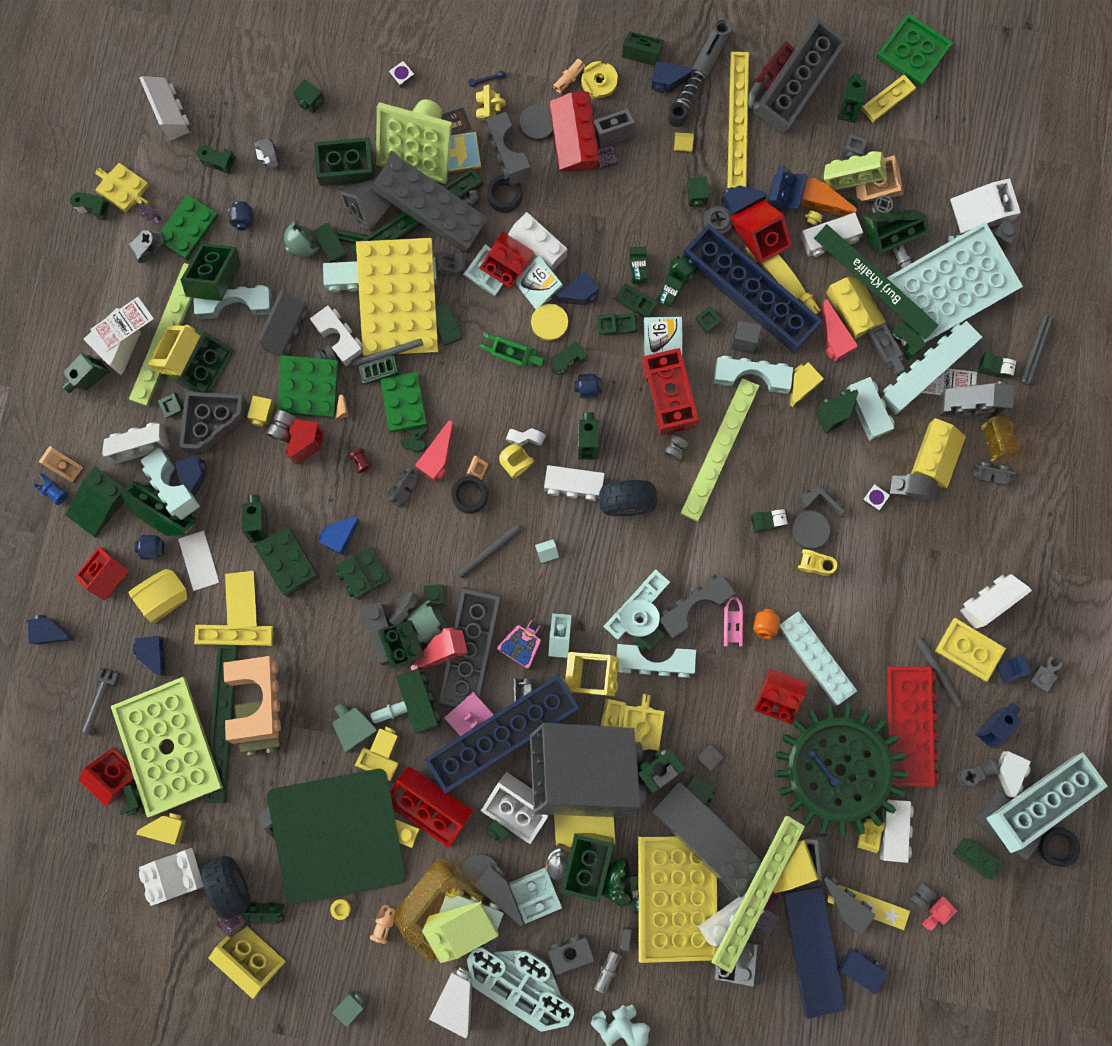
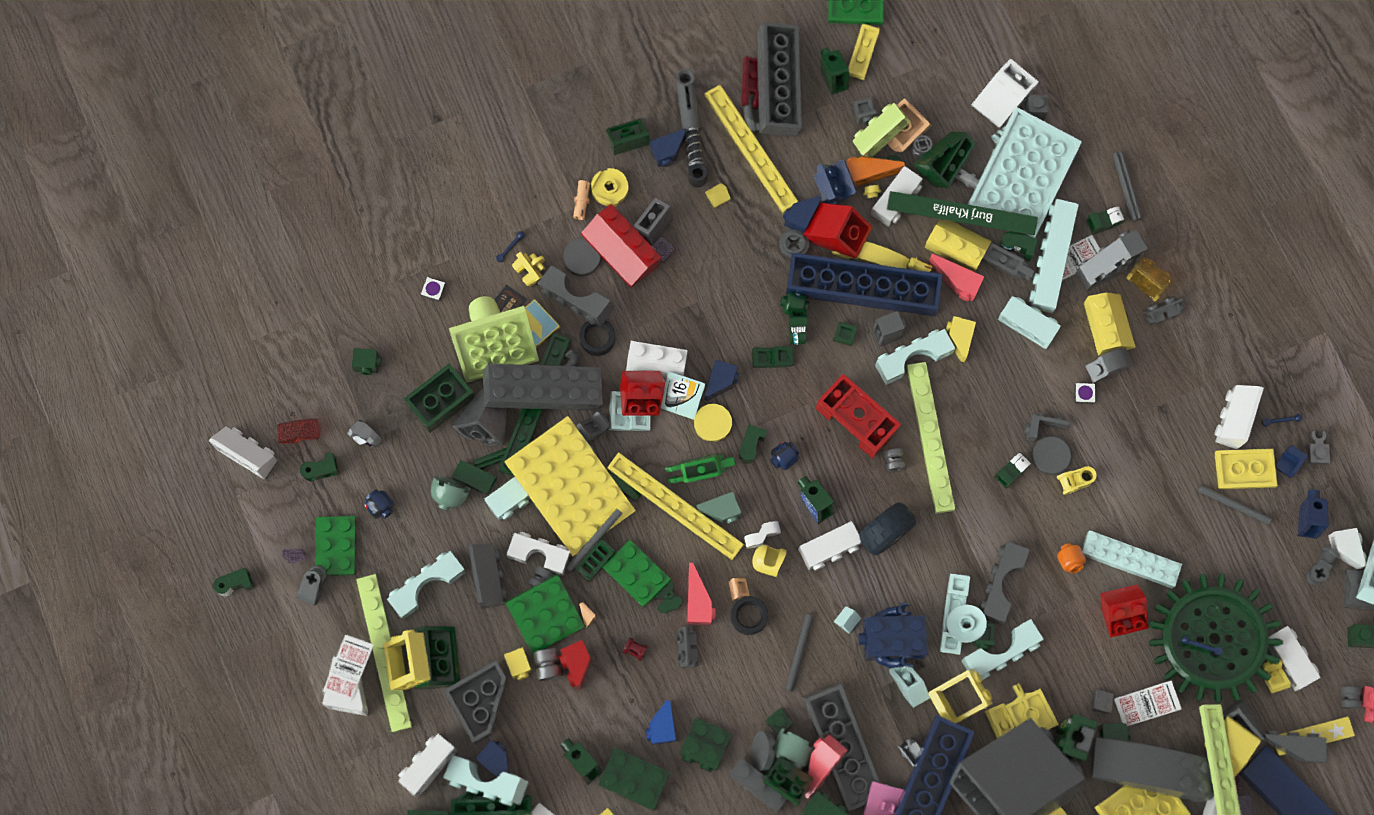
camera: 40 degrees left, 5 degrees down
(84, 372) = (341, 728): dark green torso -> none
(122, 187) = (251, 548): light yellow plate -> none
(171, 405) = (434, 712): plate -> none
(210, 272) = (392, 570): dark green brick -> none
(219, 117) = (298, 430): none -> clear red slope
(471, 368) = (675, 506): none -> light yellow tile
(507, 394) = (721, 509): none -> sand green slope
(521, 644) = (883, 713): torso -> none
(571, 590) = (894, 637): none -> dark blue torso
(616, 324) = (771, 387): dark green slope -> none
(638, 264) = (754, 325): dark green leg -> none
(662, 334) = (817, 373): slope -> none
(697, 191) = (760, 231): dark green brick -> none
(733, 617) = (1040, 572): bright pink piece -> none
(745, 784) = (1147, 703): none -> white sticker
(836, 411) = (1006, 342): dark green slope -> none
(863, 971) = (1346, 791): dark blue brick -> none
(912, 721) = (1242, 558): red bracket -> none
(1016, 622) = (1265, 422): none -> dark blue hinge

